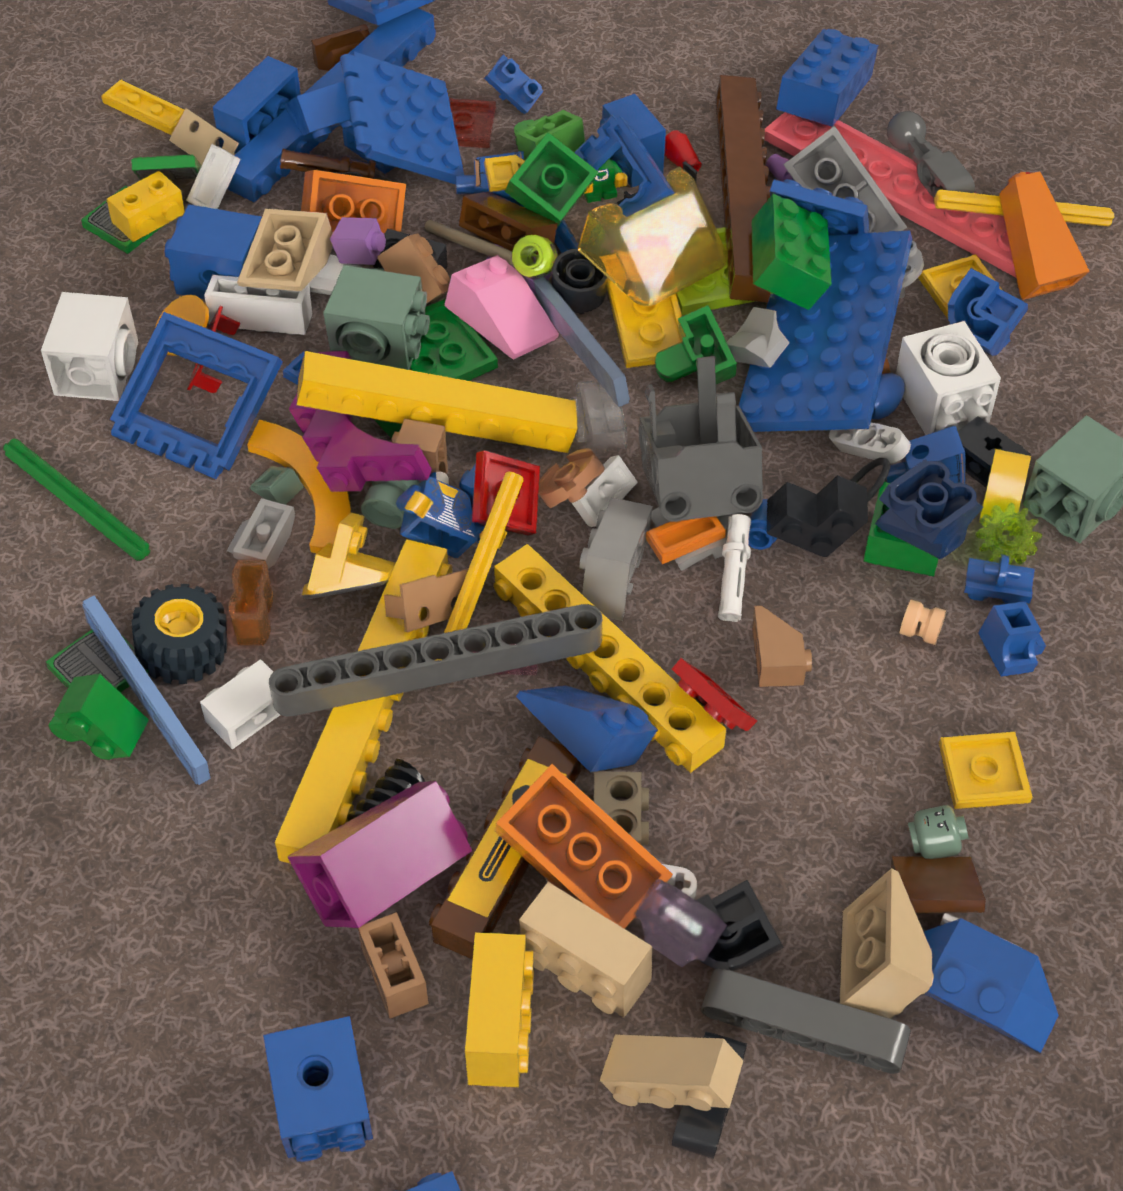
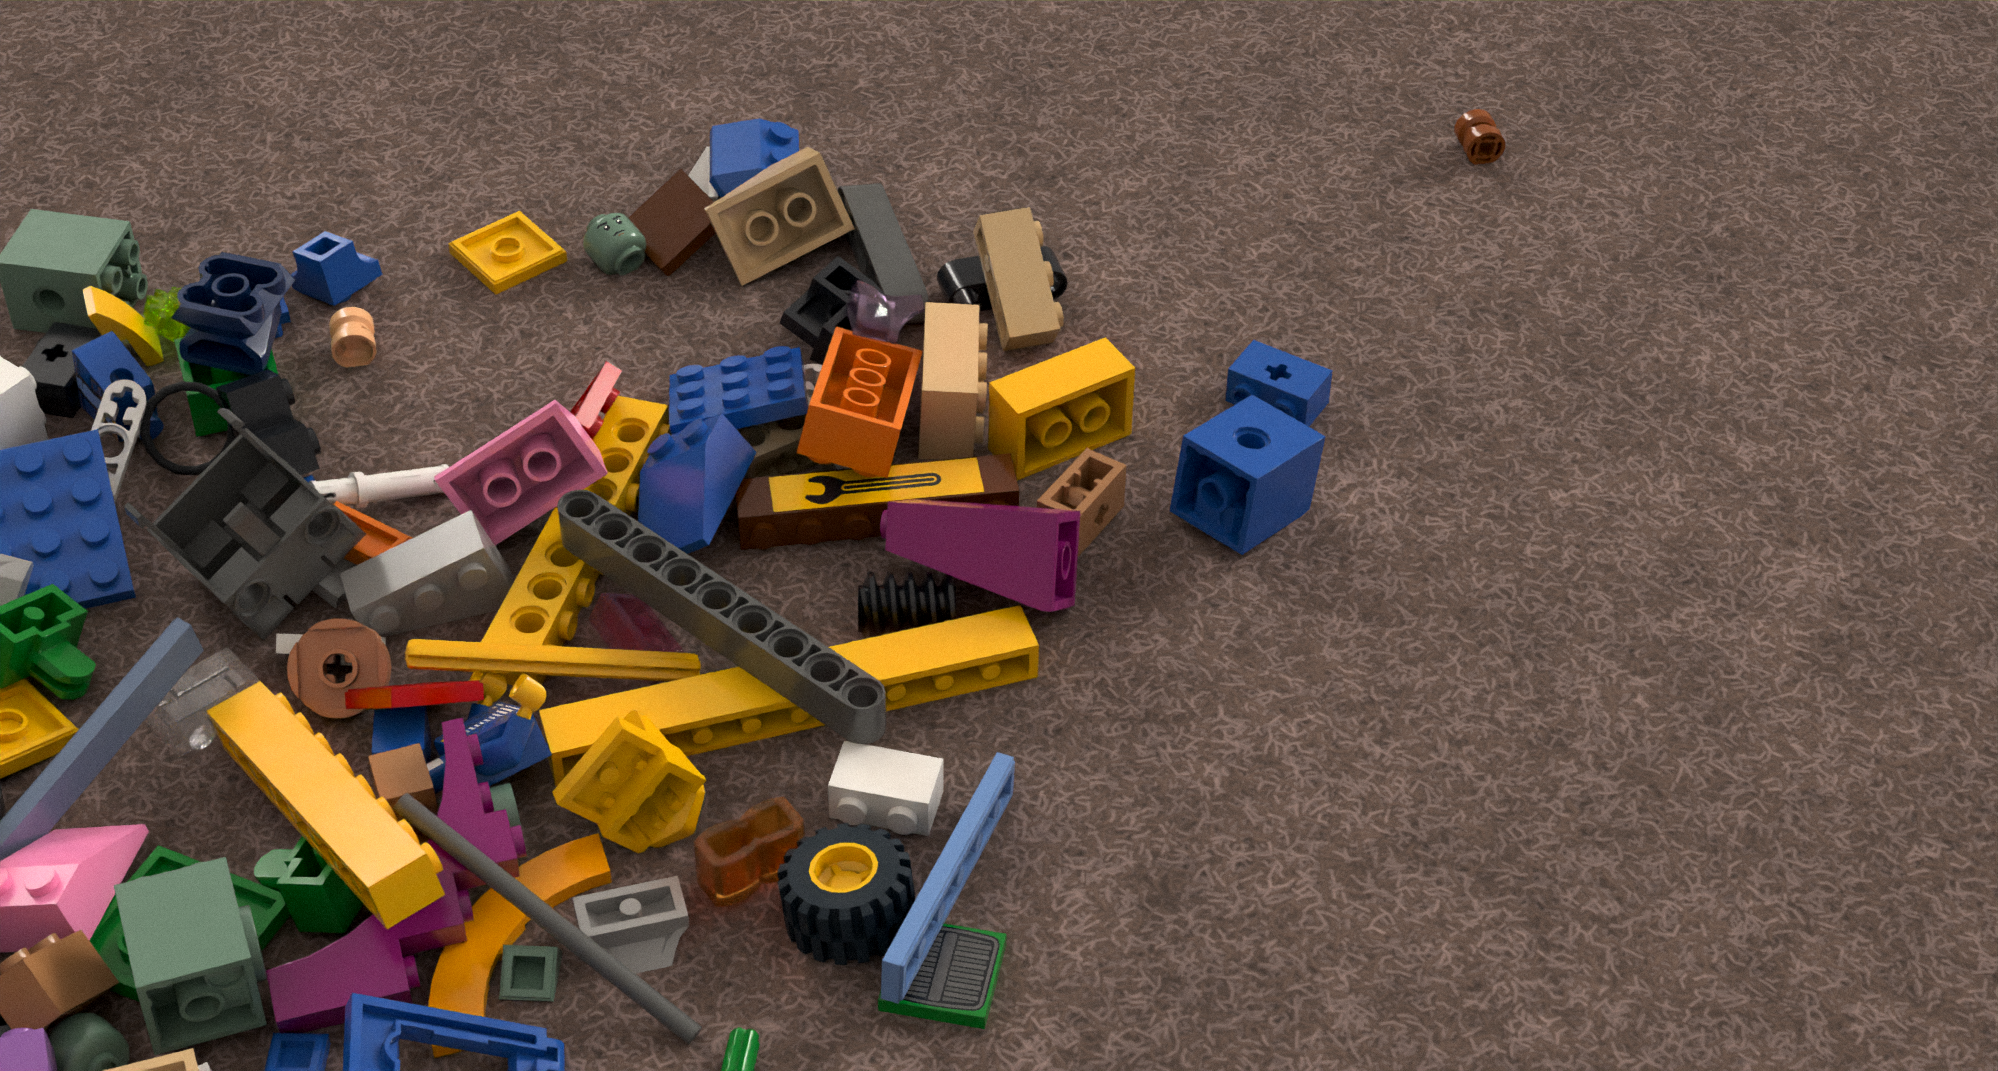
camera: 125 degrees left, 10 degrees down
(99, 717) = (1031, 878): green brick -> none
(273, 472) = (548, 918): none -> dark grey piece
(427, 592) = (625, 675): medium nougat piece -> none
(661, 623) = (524, 471): none -> bright pink slope
(677, 808) = (741, 389): none -> blue plate
(778, 651) = (471, 418): medium nougat slope -> none

